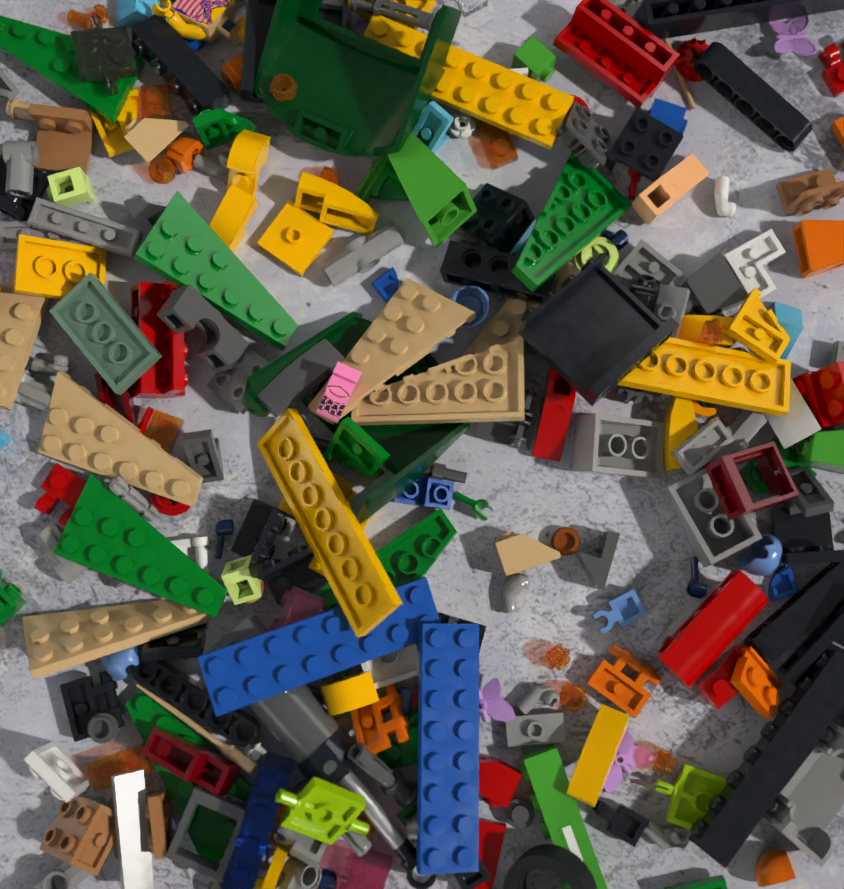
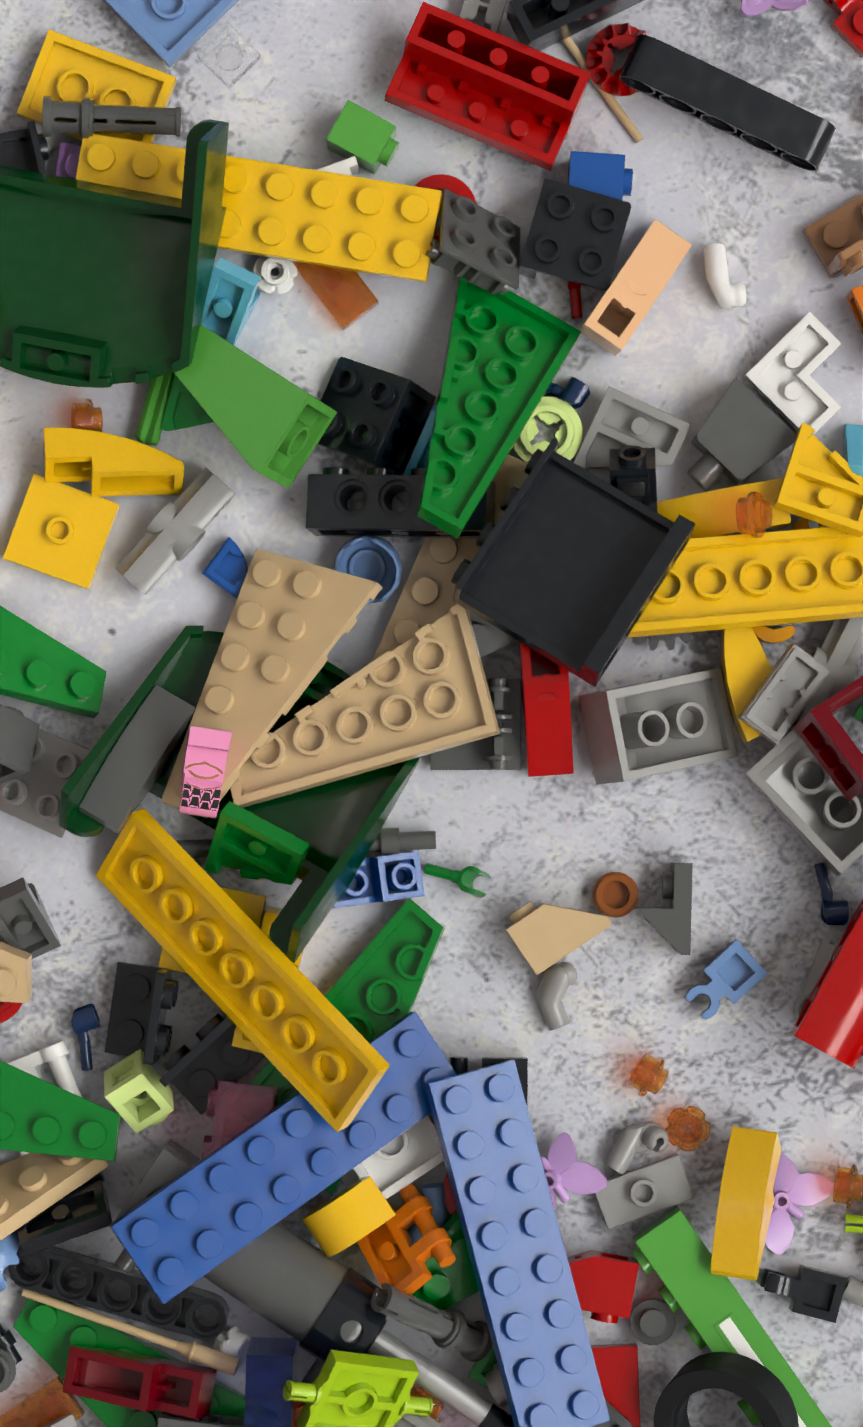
camera: 15 degrees left, 5 degrees up
(618, 687) = (752, 1094): orange plate -> none
(672, 303) = (682, 488): light grey plate -> none

